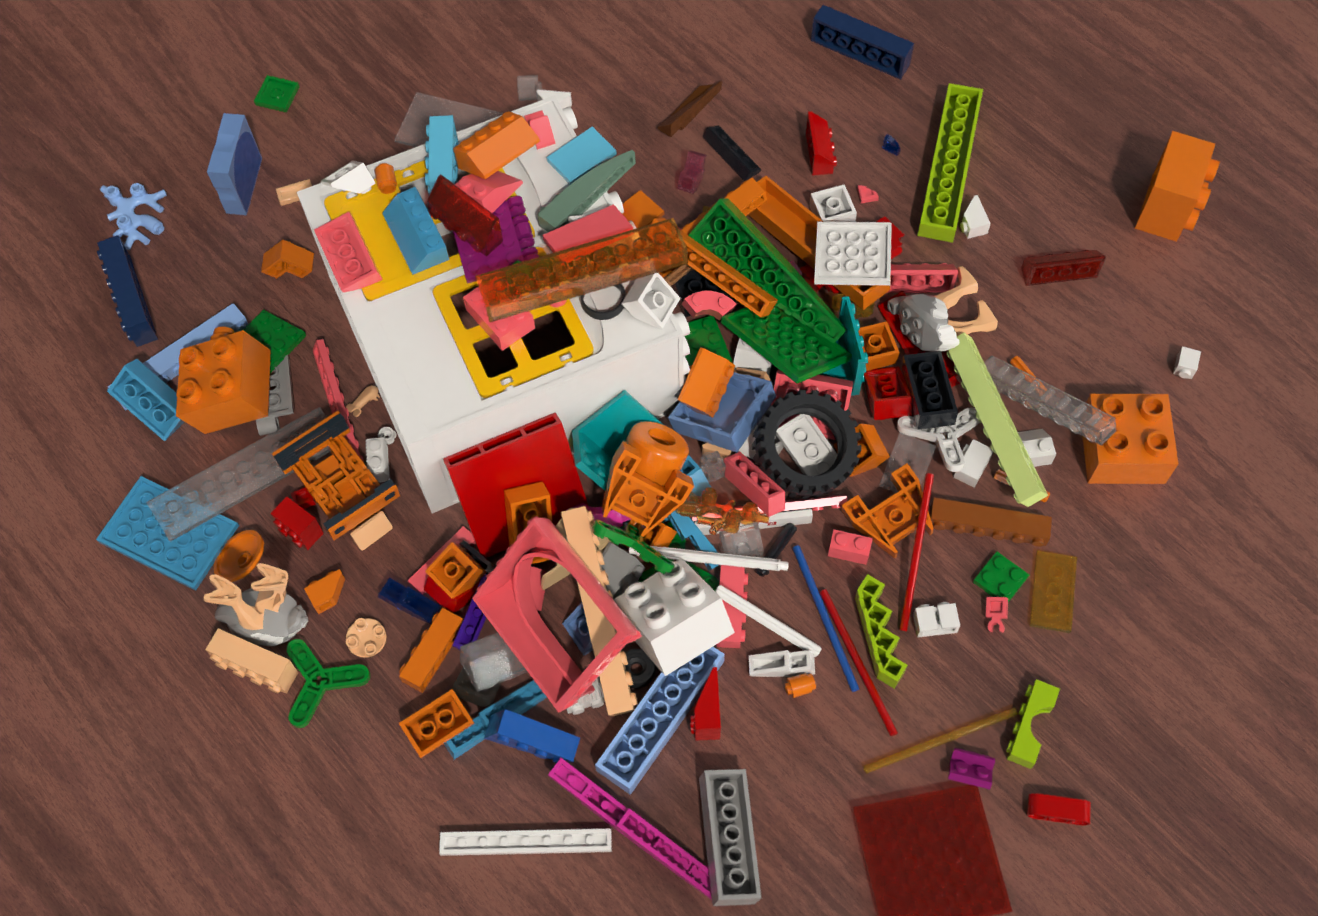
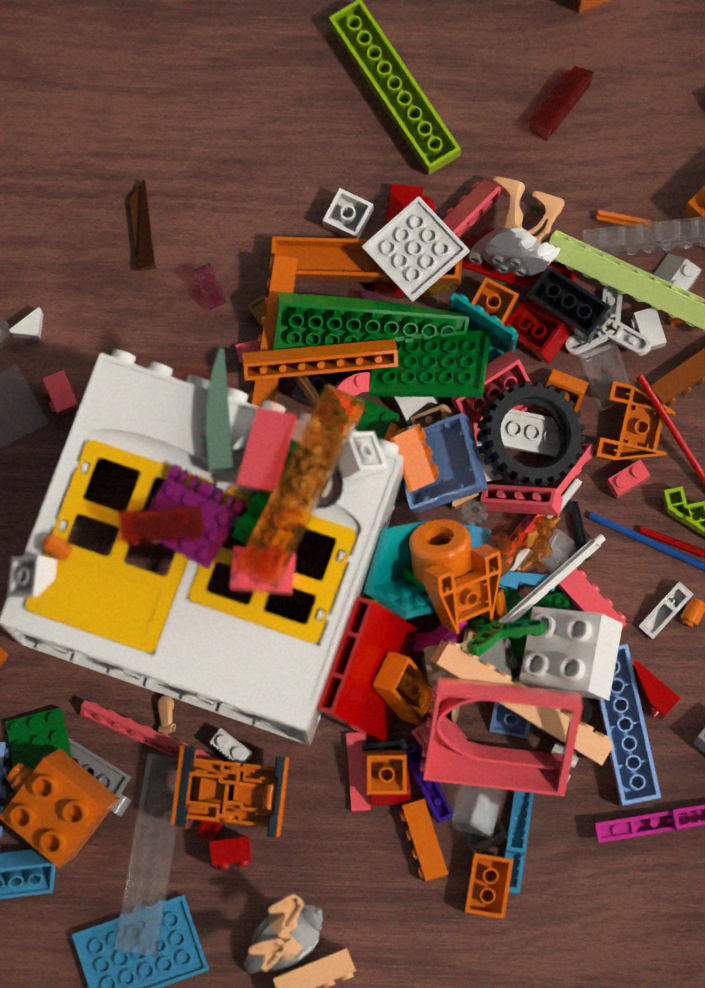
camera: 45 degrees left, 15 degrees up
(239, 555) = (209, 919): orange dish -> none
(312, 693) = (375, 953): green piece -> none
(326, 591) = (305, 878): orange slope -> none
(347, 253) = (98, 633): coral slope -> none
(366, 637) = (368, 878): light nougat dish -> none
(371, 530) = (288, 803): light nougat slope -> none
(387, 431) = (214, 718): white plate -> none
(409, 601) = (369, 823): clear blue slope -> none
(415, 231) = (129, 568): dark azure slope -> none
(440, 147) = (85, 489): medium azure brick -> none
(489, 191) = (147, 483): coral slope -> none
(495, 145) = (117, 443): orange slope -> none
(525, 842) = (626, 899): white plate -> none
(531, 736) = (560, 830): blue wedge -> none
(541, 126) = (123, 393): coral slope -> none
(581, 155) = (179, 385): medium azure tile -> none
(641, 210) = (198, 356): orange tile -> none
(731, 152) = (215, 236): black slope -> none
(767, 620) = (628, 590): white axle -> none
(820, 145) = (281, 166): red slope -> none
(862, 41) = (220, 38): dark blue brick -> none
(866, 194) = (355, 174): coral tile -> none
(891, 145) = (333, 112): clear blue tile -> none
(975, 220) = (458, 120): white slope -> none

